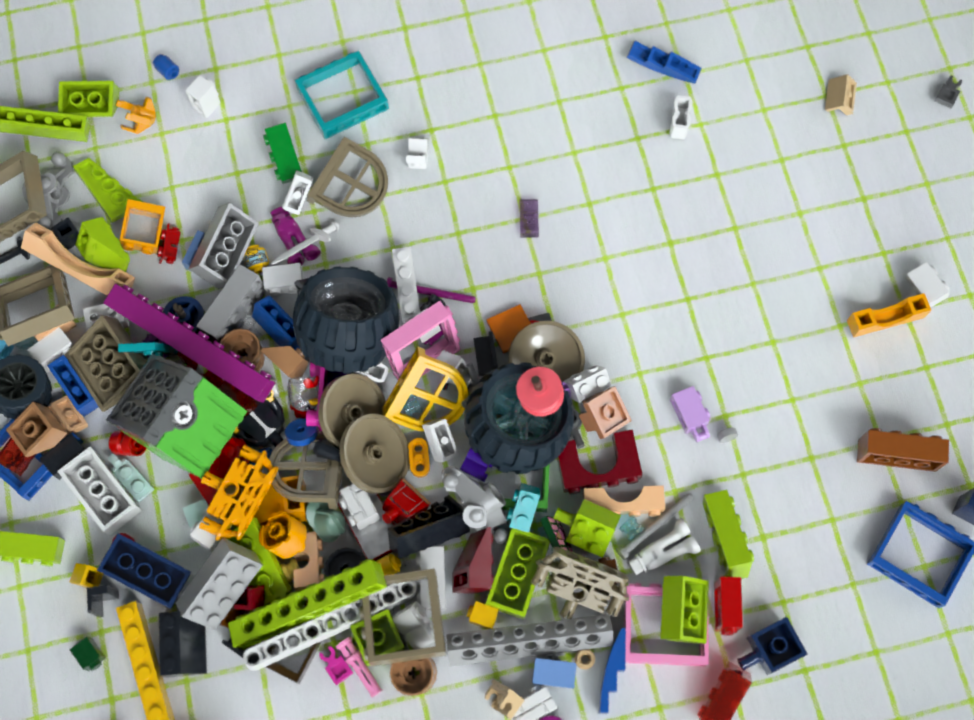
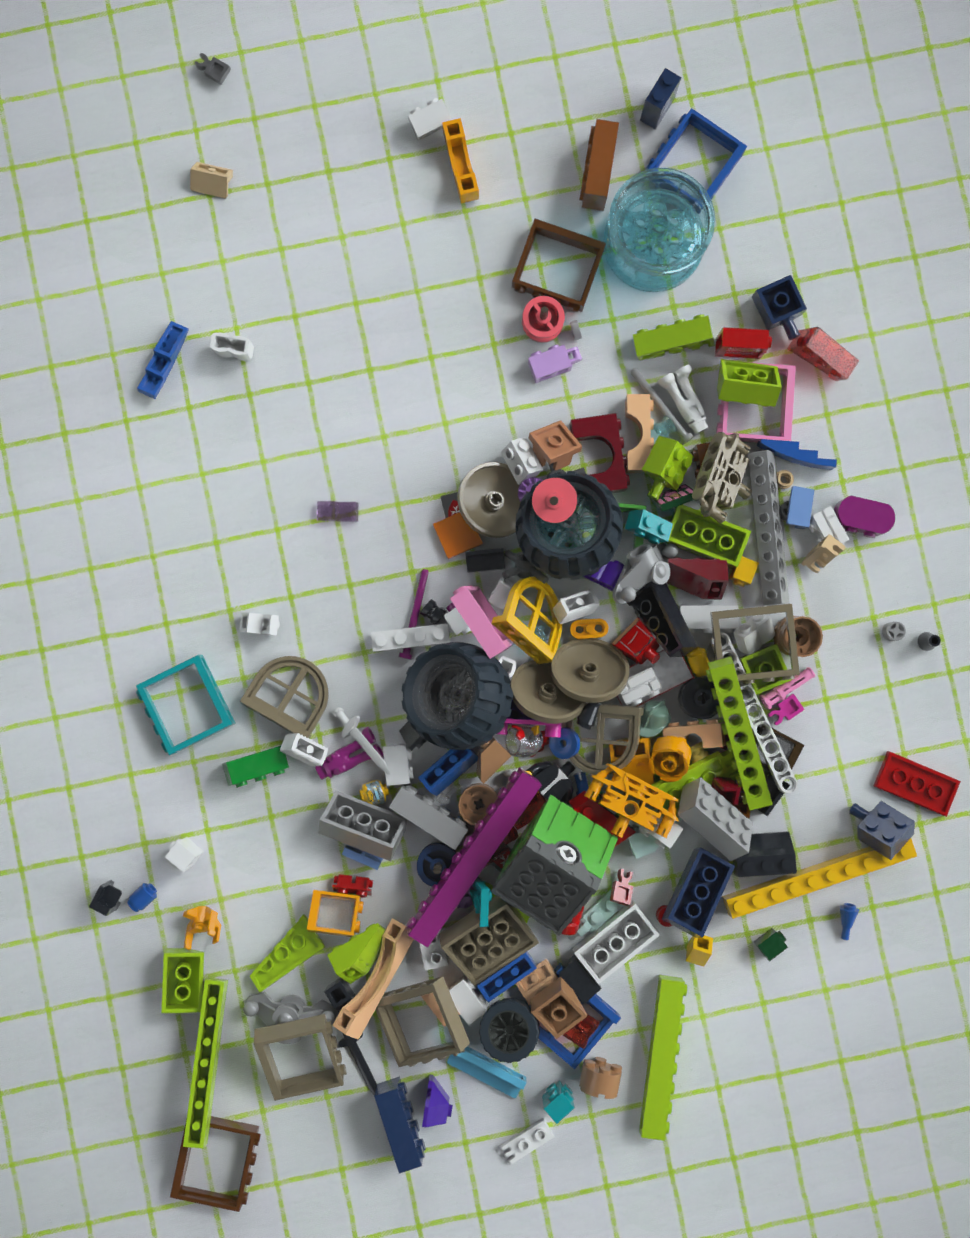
camera: 90 degrees left, 15 degrees up
(97, 595) = (720, 937): black panel -> none
(150, 496) = (621, 891): none -> plate
(165, 34) = (106, 899): none -> black panel
(735, 400) = (543, 319): none -> coral wheel
(790, 379) = (570, 238): none -> reddish brown window
(852, 468) = (654, 189): none -> clear light blue wheel

